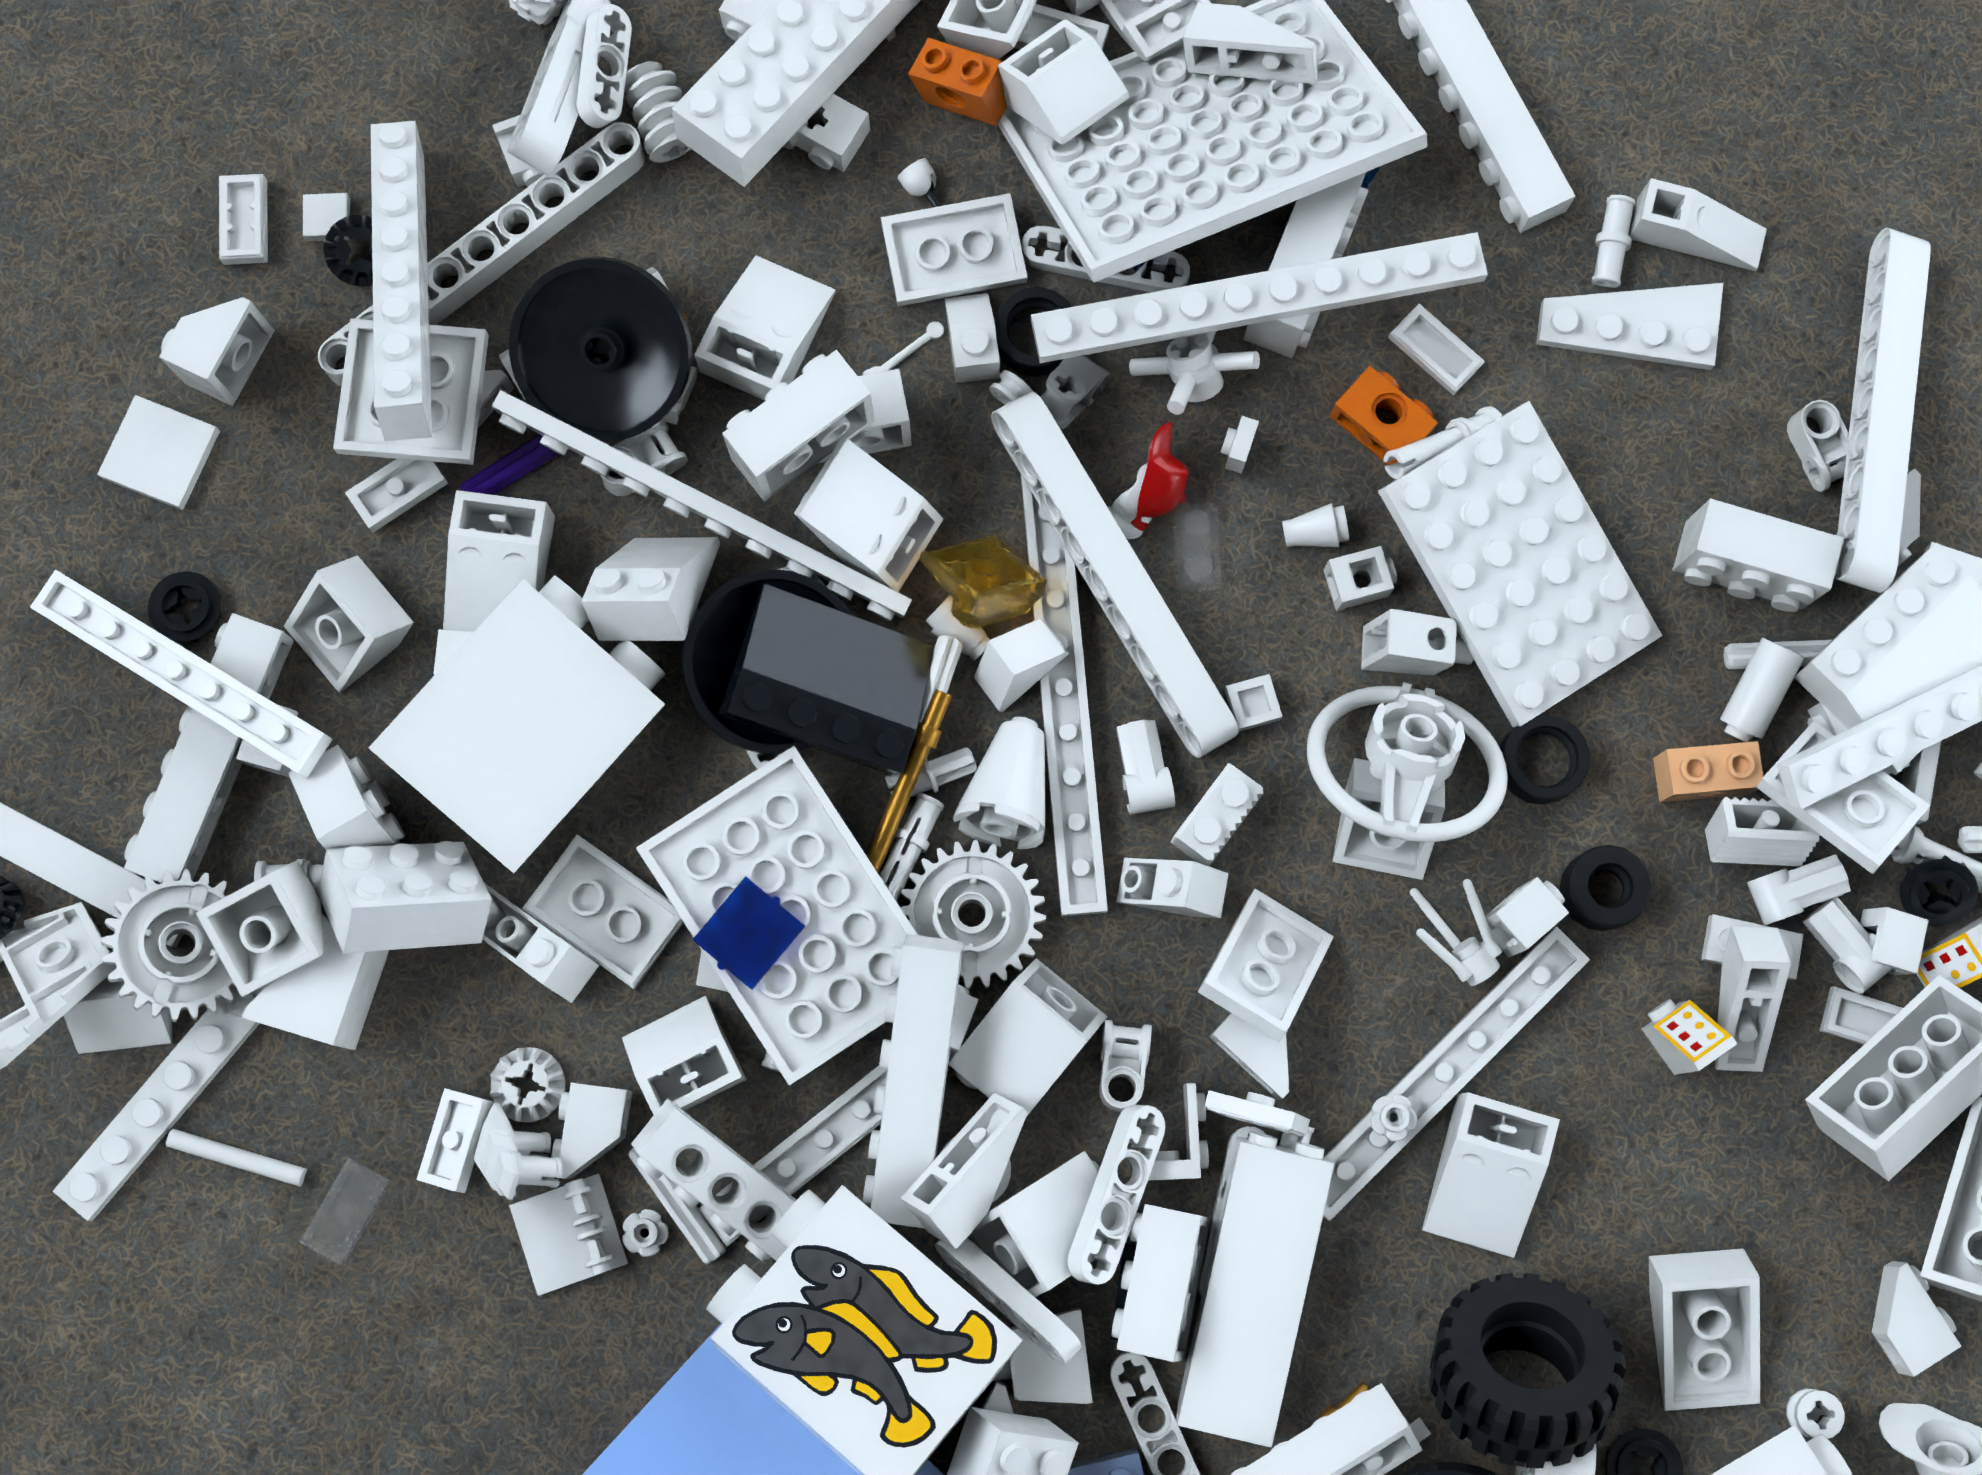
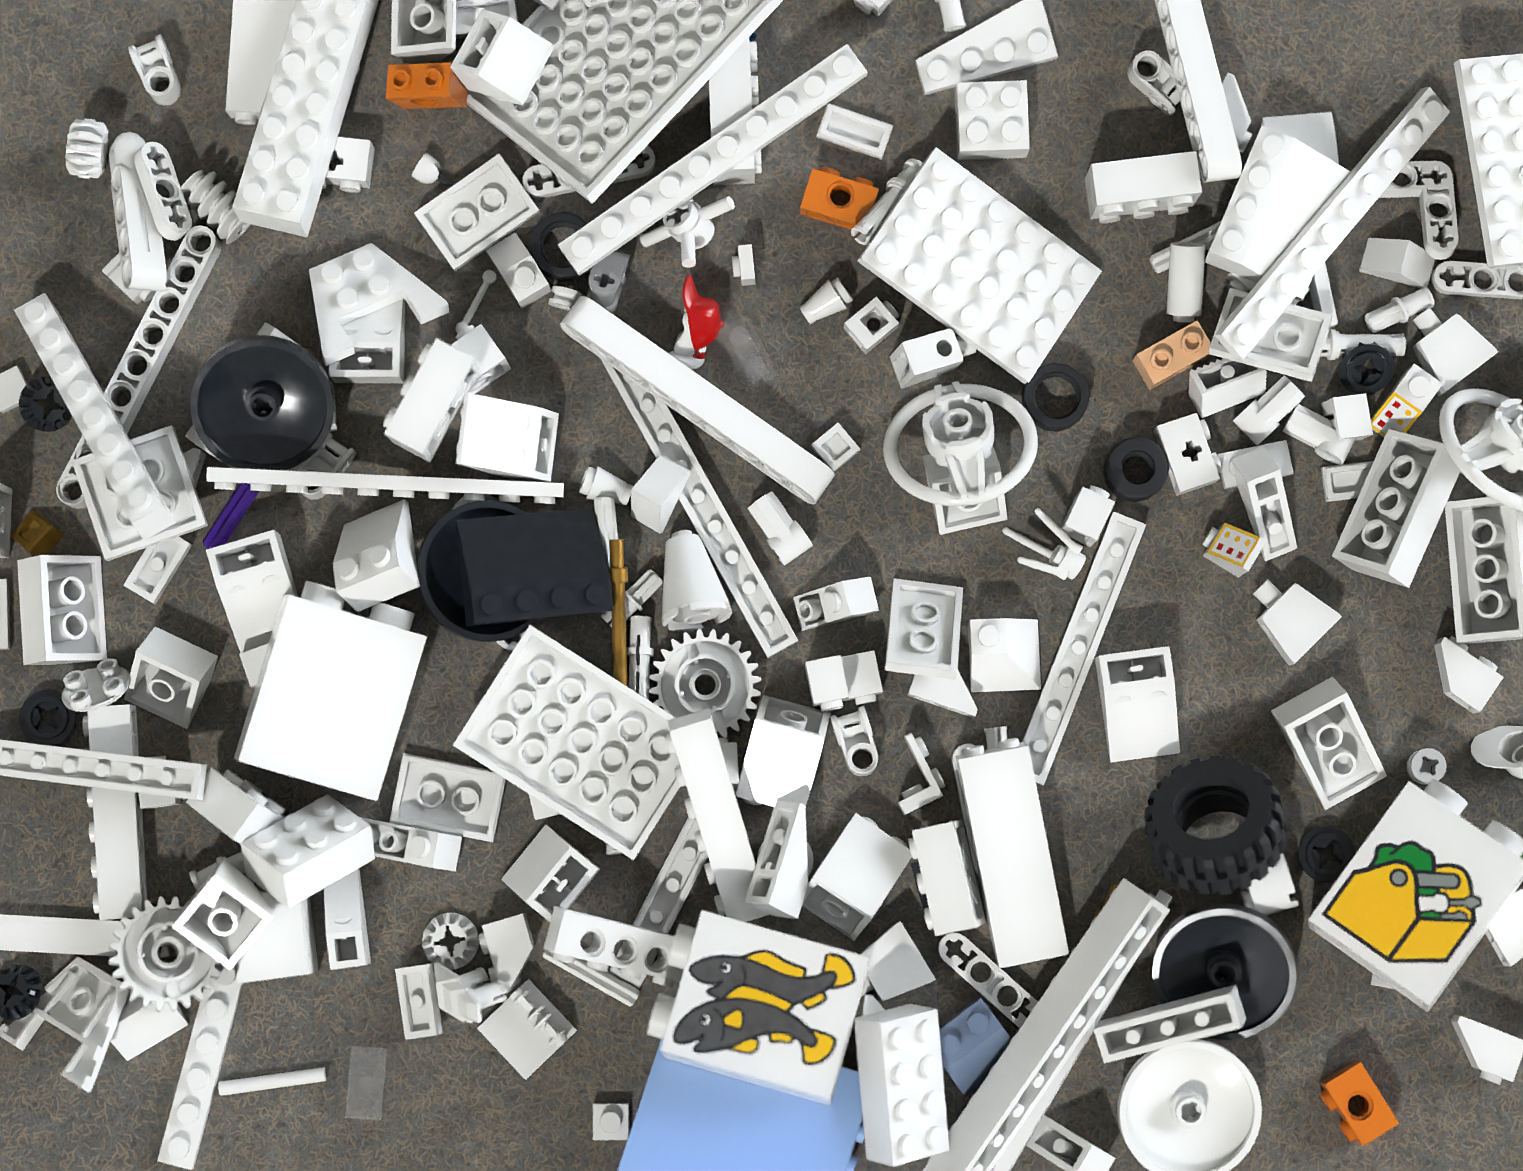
camera: 20 degrees left, 5 degrees up
(254, 594) = (95, 686): none -> white dish
(261, 489) = (61, 609): none -> white slope
(276, 394) = (37, 534): none -> pearl gold slope
(412, 1005) = (346, 923): none -> white slope
(616, 1395) = (610, 1121): none -> white plate
(657, 1233) = (588, 1002): white plate -> none
(748, 933) = (558, 768): clear blue piece -> none
(779, 271) = (360, 285): none -> white wing
(985, 581) = (608, 446): clear yellow slope -> none
(1012, 1300) = (850, 935): white beam -> none
(1111, 1190) = (895, 832): white beam -> none
(1140, 981) = (843, 679): none -> white brick
(1217, 815) = (845, 539): white brick -> none
(1258, 1111) = (961, 732): white plate -> none
(1348, 1039) = (1004, 655): none -> white slope
(1380, 1118) = (1056, 685): white plate -> none
(1606, 403) = (992, 120): none -> white brick
(1664, 918) = (1182, 471): none -> white brick
(1724, 1156) = (1293, 619): none -> white torso

